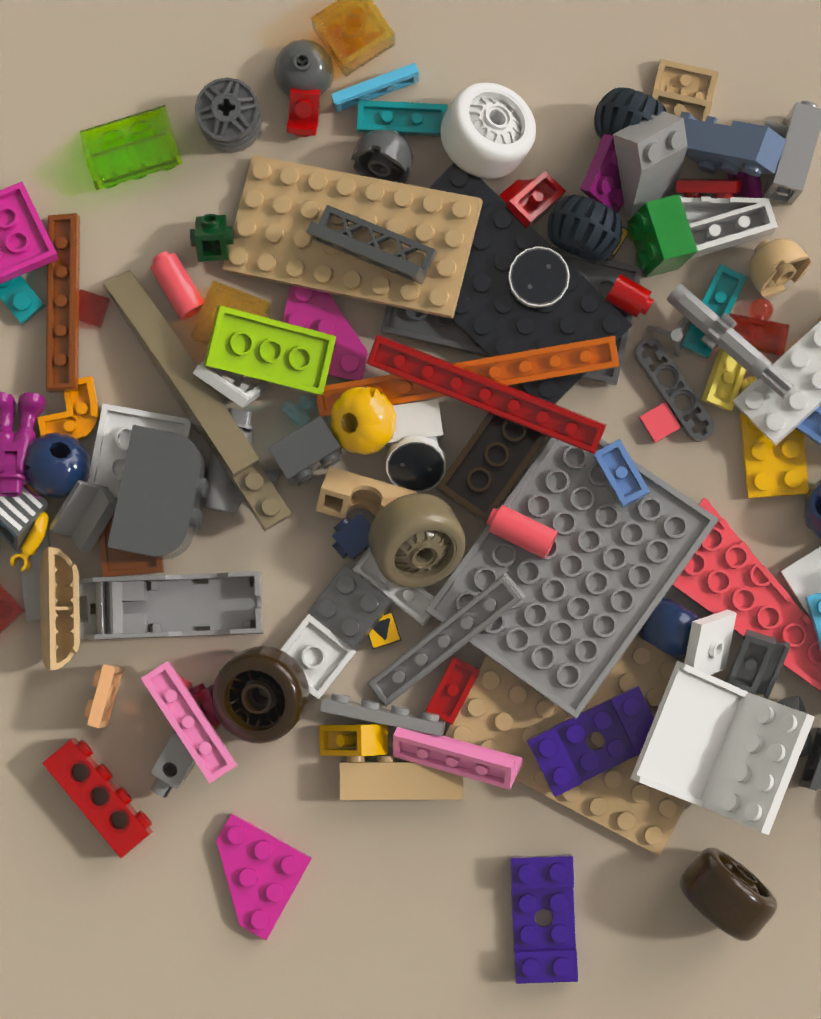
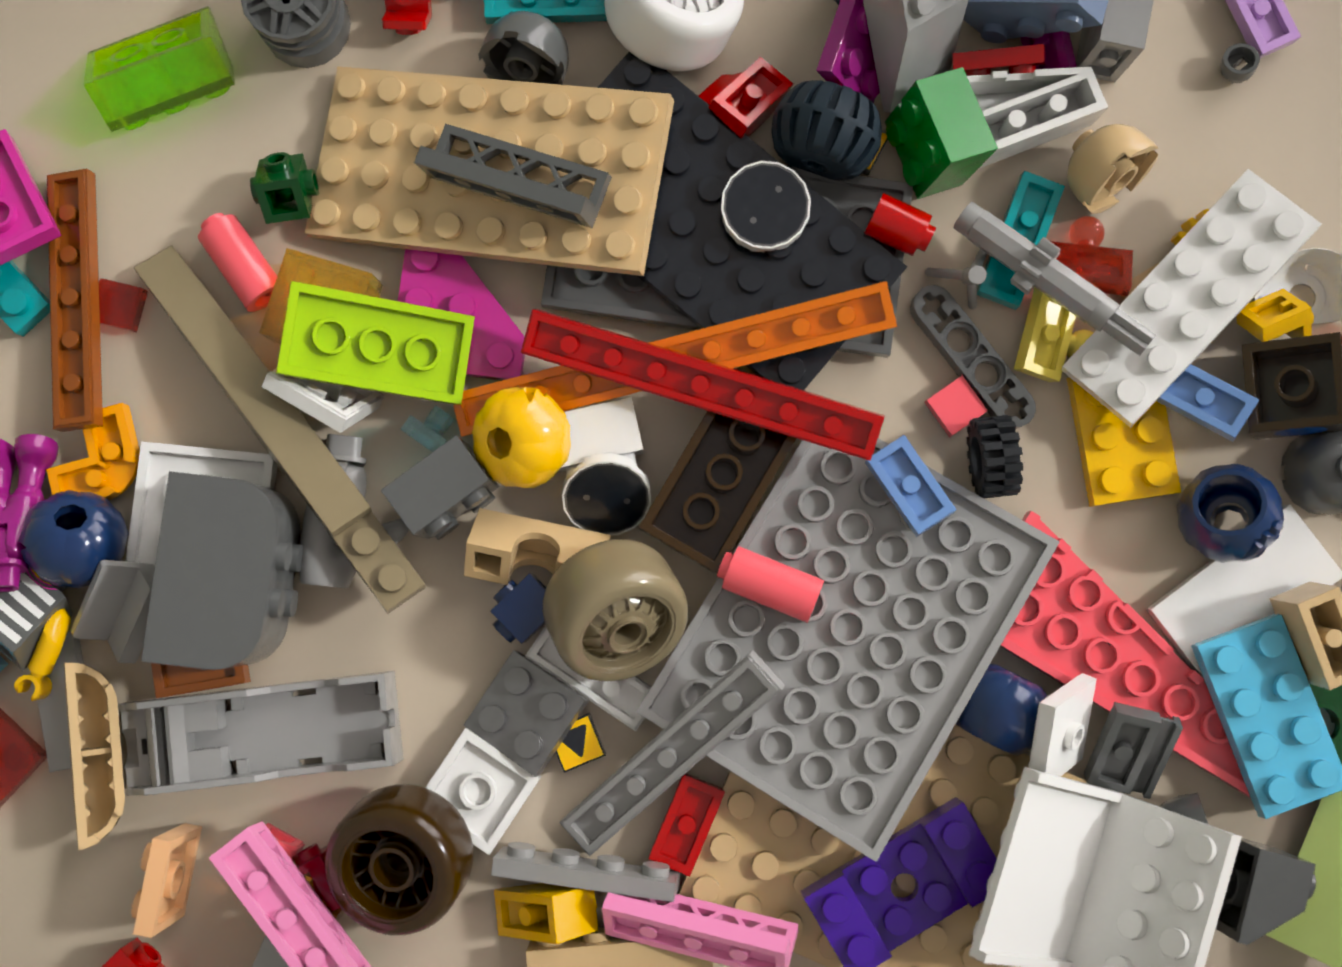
camera: 10 degrees left, 0 degrees up
(681, 458) = (994, 456): none -> black tyre

